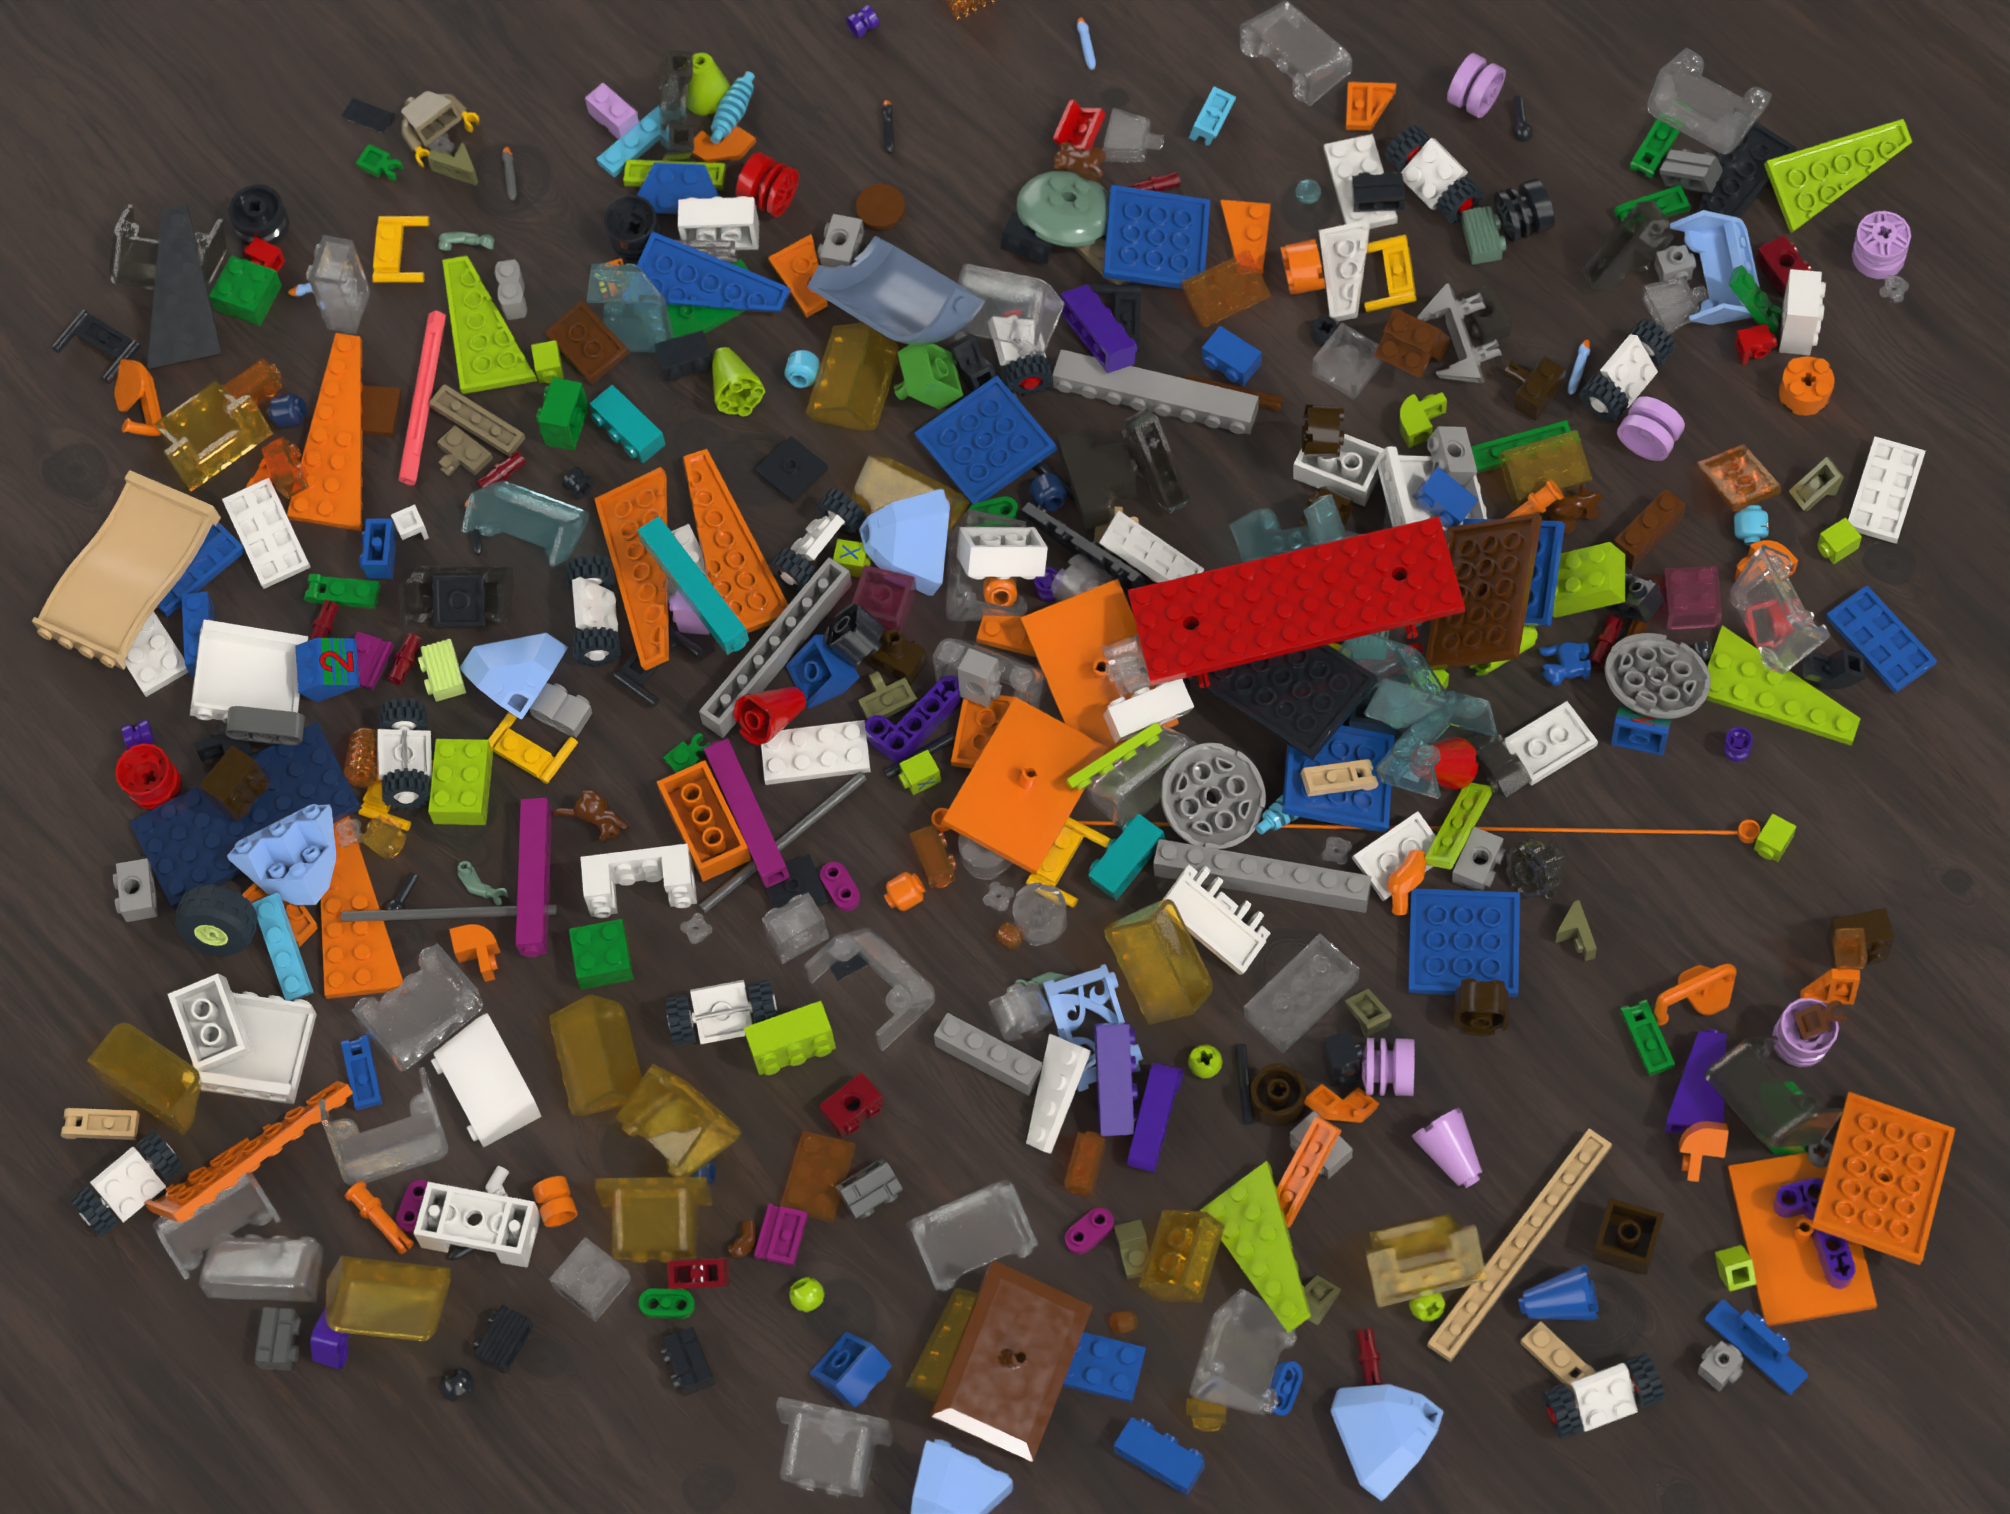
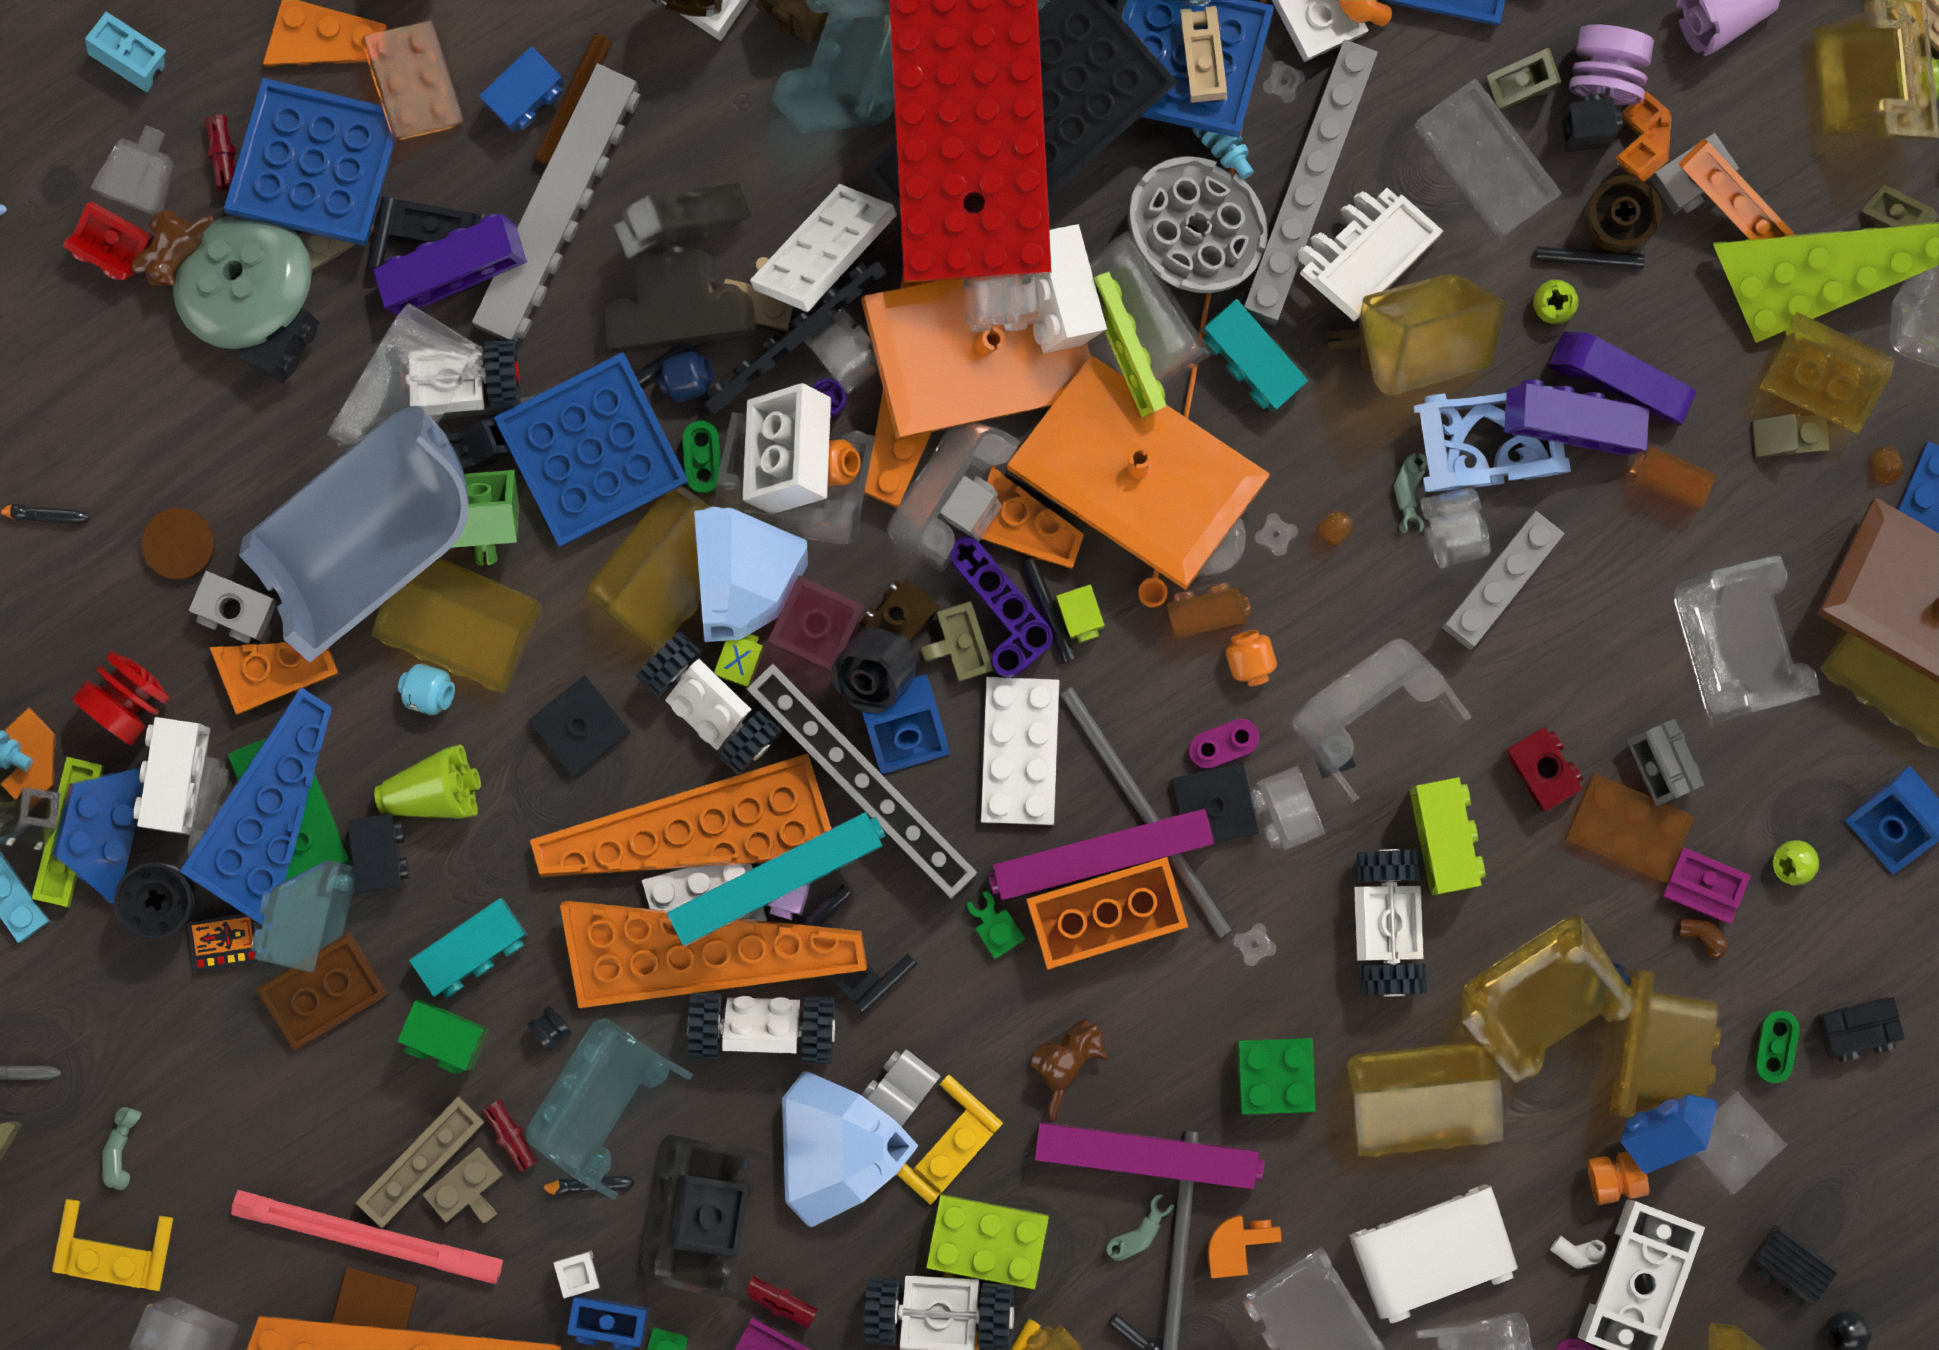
camera: 90 degrees left, 20 degrees up
(442, 670) = (810, 1250): yellowish green brick -> none
(482, 341) = (294, 1140): lime wing -> none
(511, 289) = (226, 1090): light grey brick -> none
(547, 361) = (347, 1050): lime brick -> none
(590, 1219) = (1669, 1131): none -> blue slope
(625, 868) = (1188, 958): white plate -> none
(698, 1273) = (1750, 999): dark red brick -> none
(767, 713) = (965, 803): red cone -> none
(1049, 903) = (1326, 463): clear brick -> none
(1056, 1088) = (1571, 496): white wing -> none
(1062, 853) = (1225, 431): yellow plate -> none
(1091, 1231) = (1757, 489): magenta plate -> none

